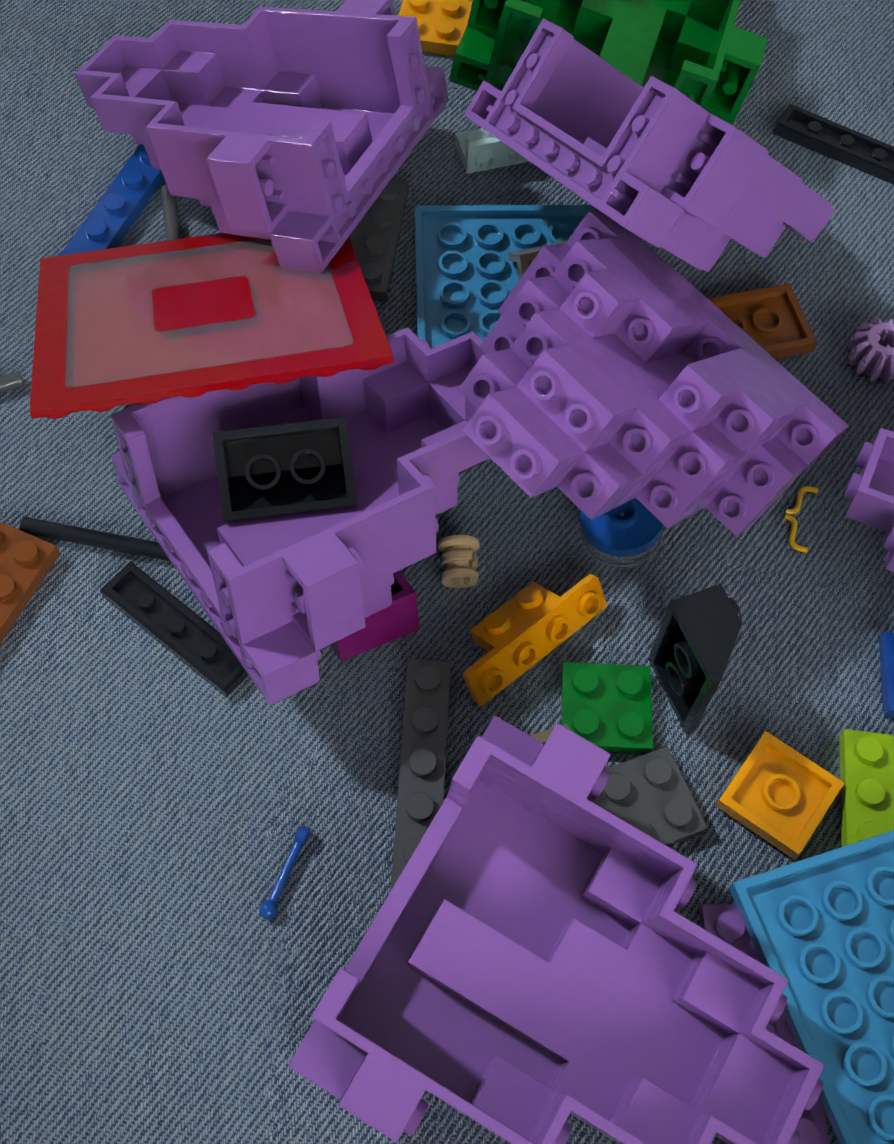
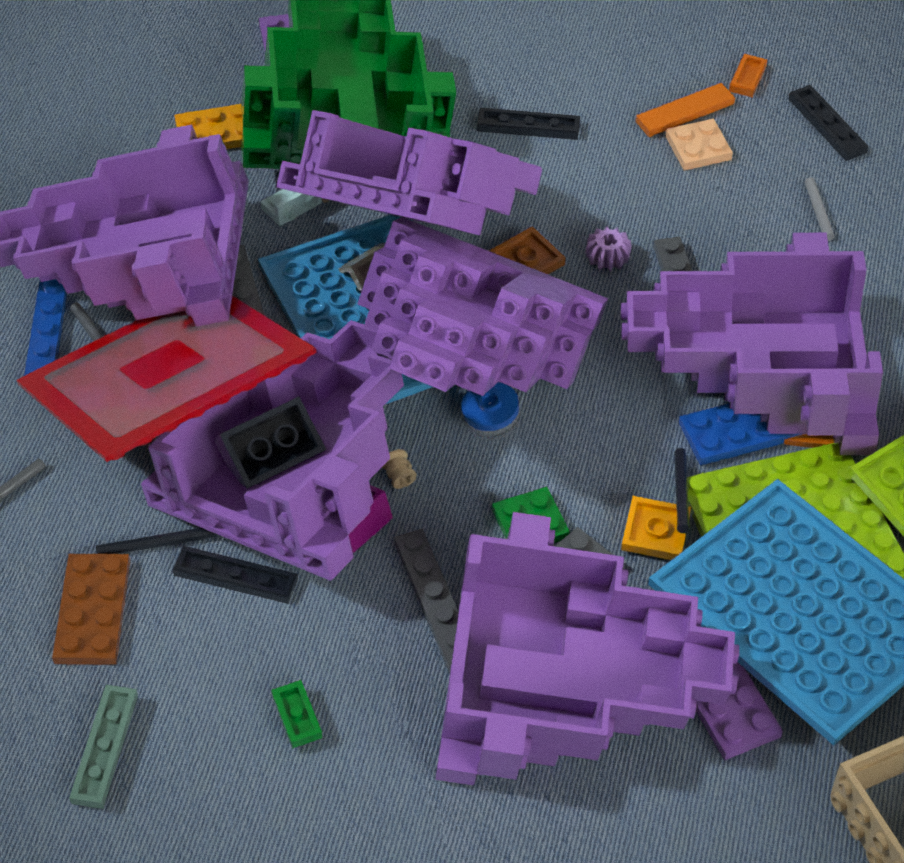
camera: 20 degrees left, 10 degrees down
(149, 876) = (296, 714): none -> green plate
(269, 908) = (378, 706): blue hinge -> none
(527, 631) = (462, 493): light orange bracket -> none
(695, 650) = (570, 462): black slope -> none
(788, 515) = (593, 369): yellow piece -> none
(839, 754) = (681, 491): none -> black bar

